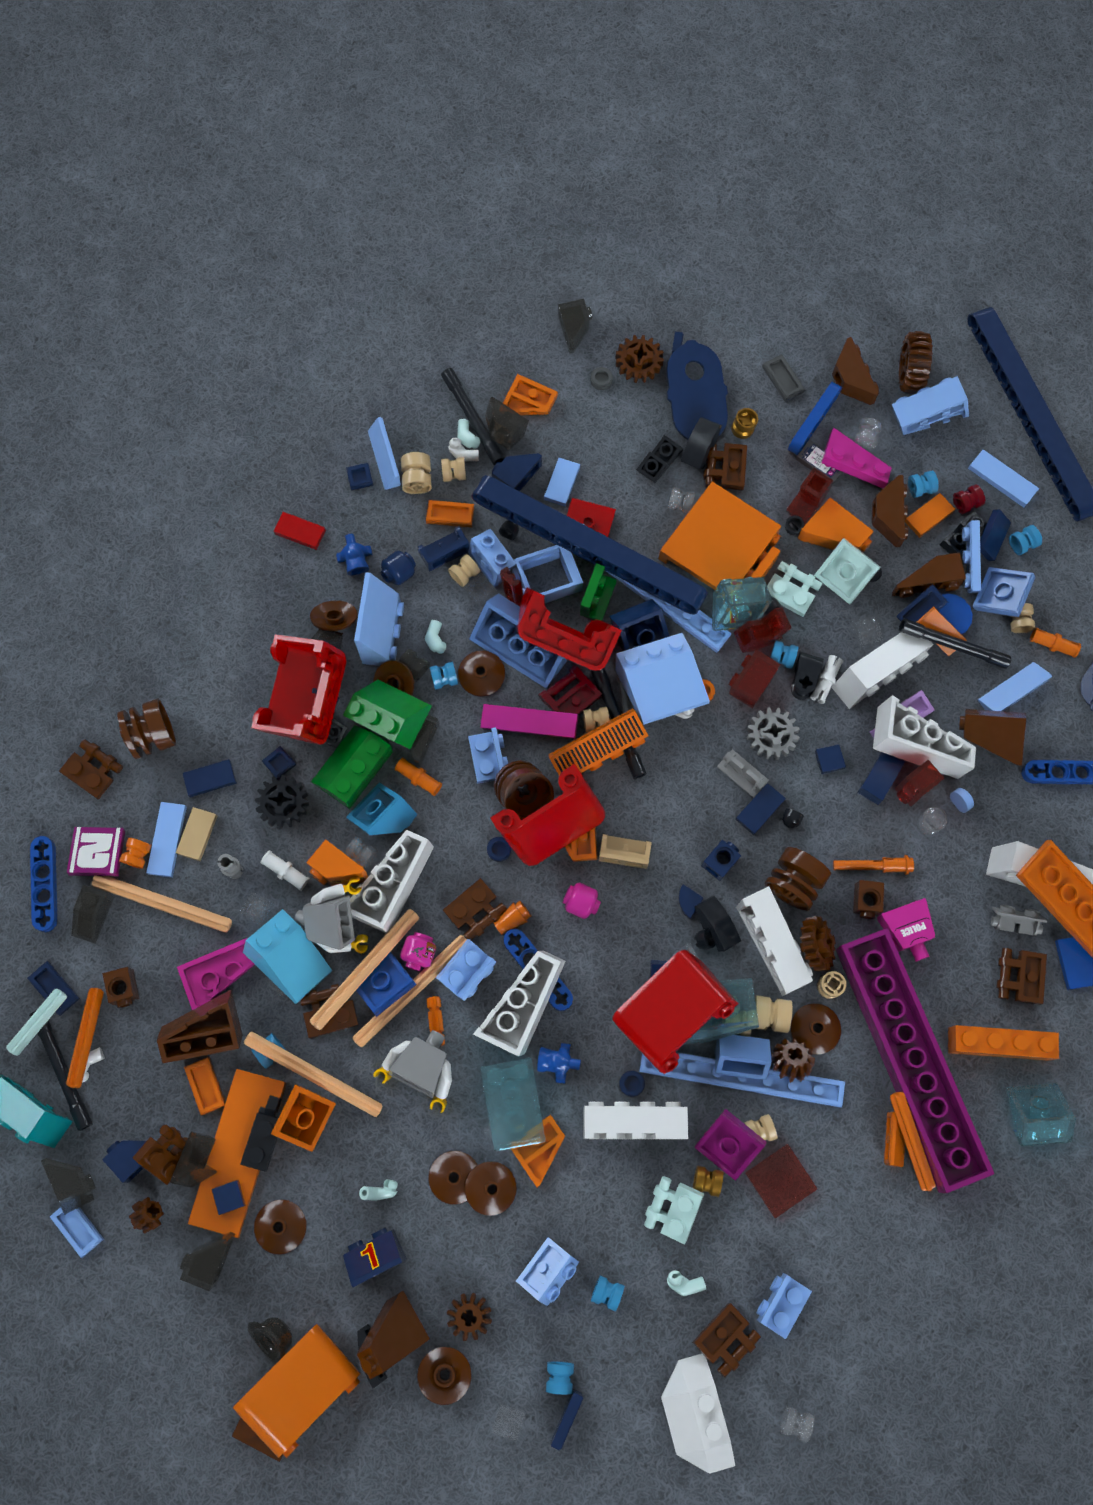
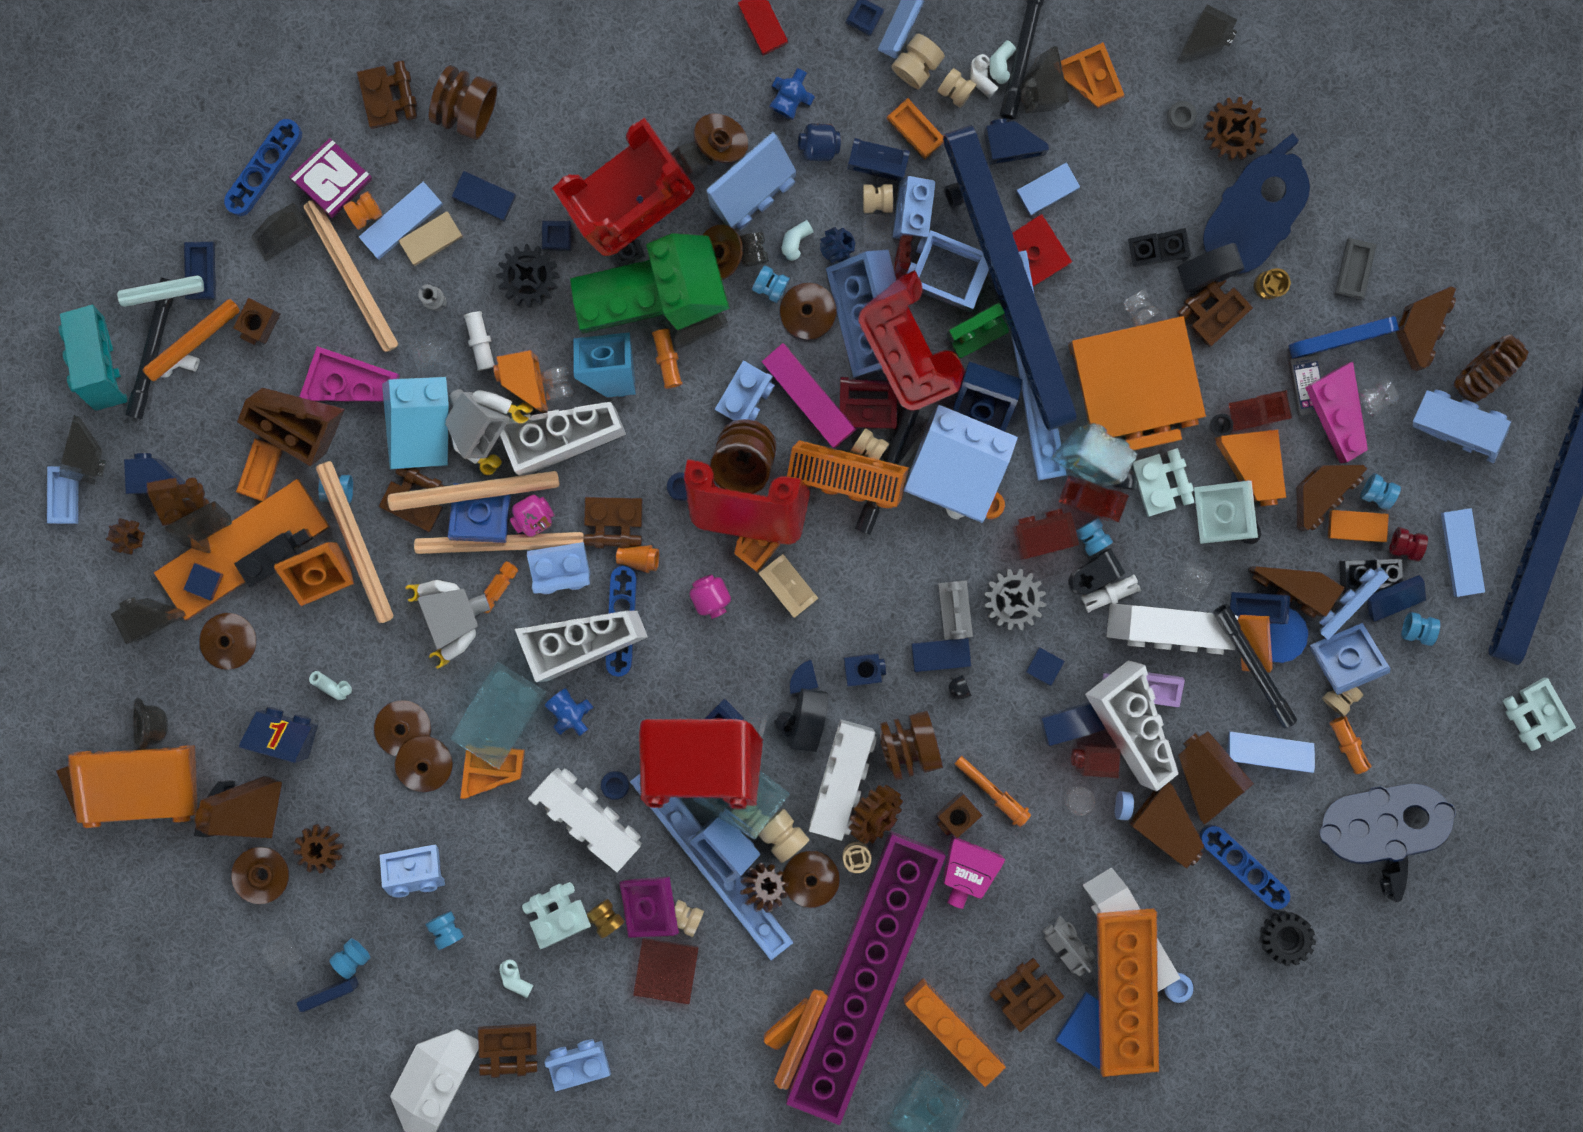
camera: 45 degrees right, 15 degrees up
(464, 617) = (837, 244): none -> dark blue gear
(1001, 787) = (1168, 826): none -> reddish brown slope

